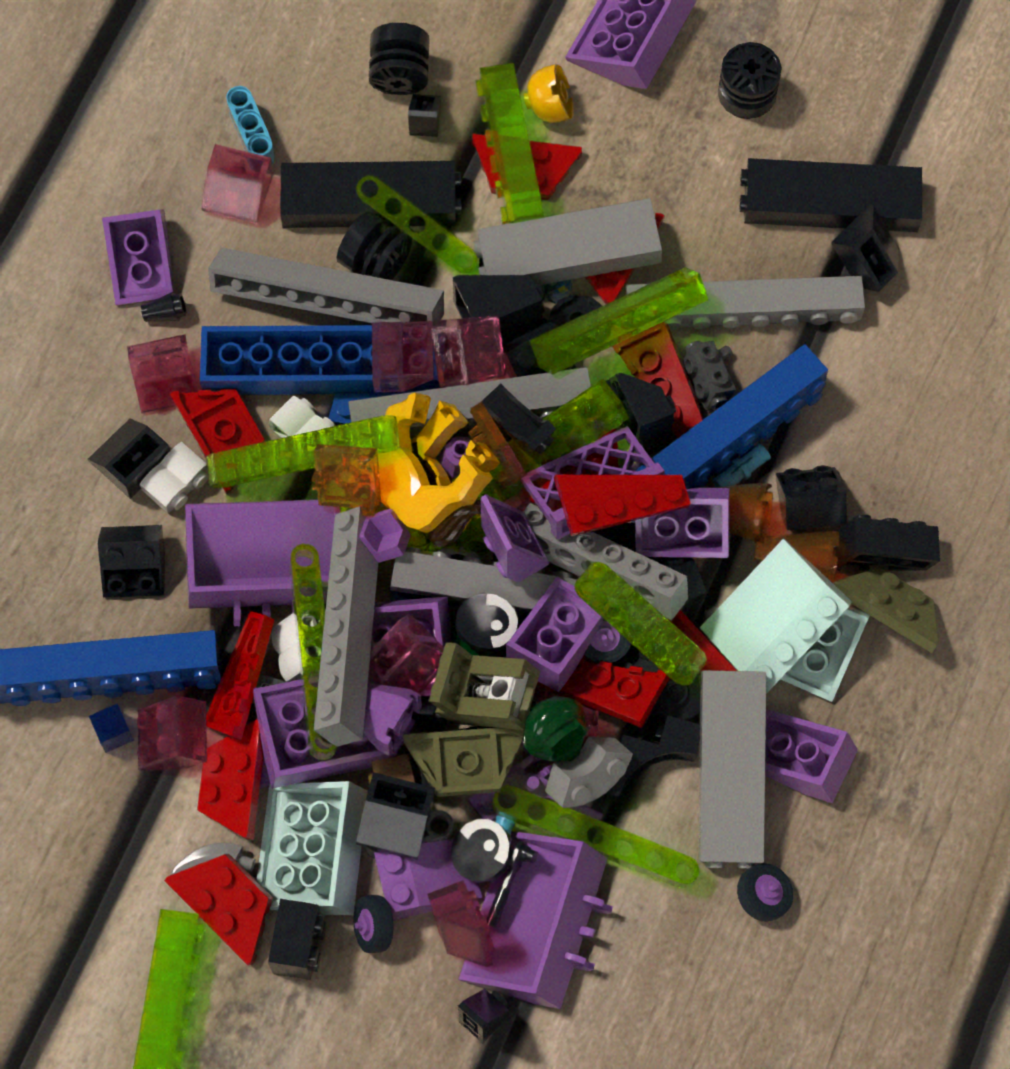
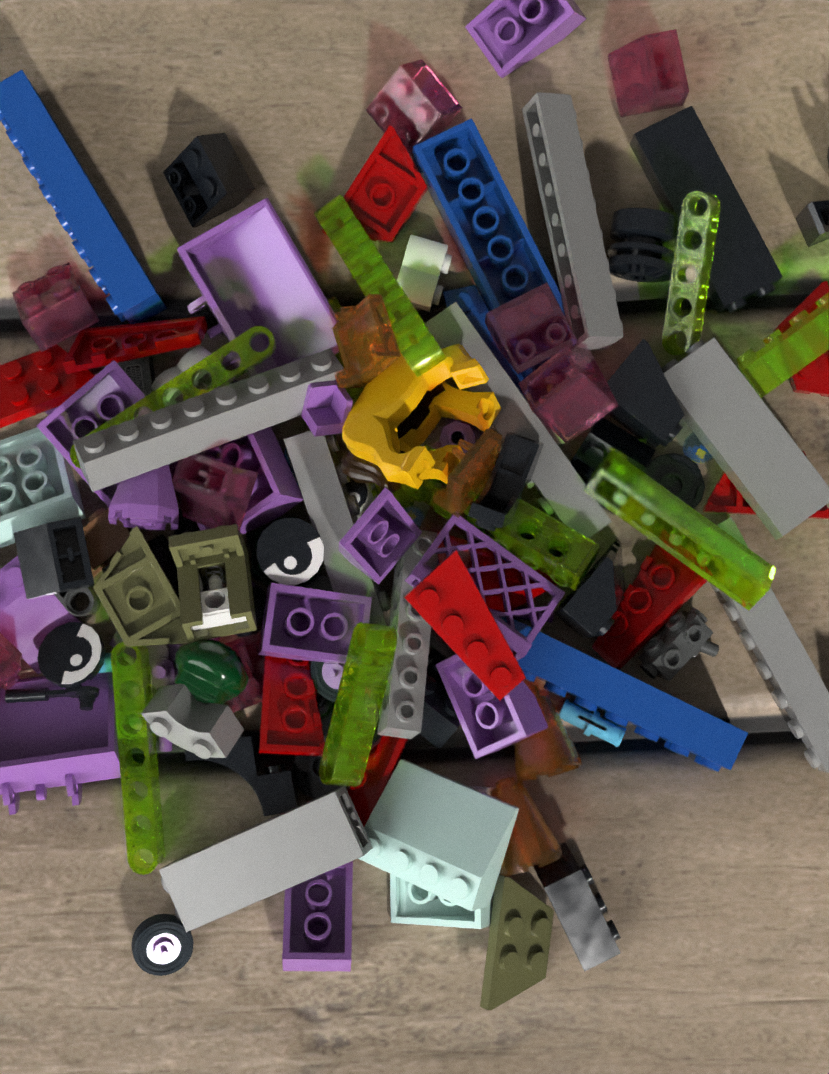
camera: 65 degrees right, 15 degrees up
(111, 728) = (33, 246): clear blue brick -> none
(129, 456) = (310, 123): black slope -> none
(165, 308) = (484, 76): black cone -> none
(175, 478) = (310, 175): white brick -> none
(249, 116) = (730, 46): medium azure beam -> none
(811, 498) = (593, 808): black slope -> none

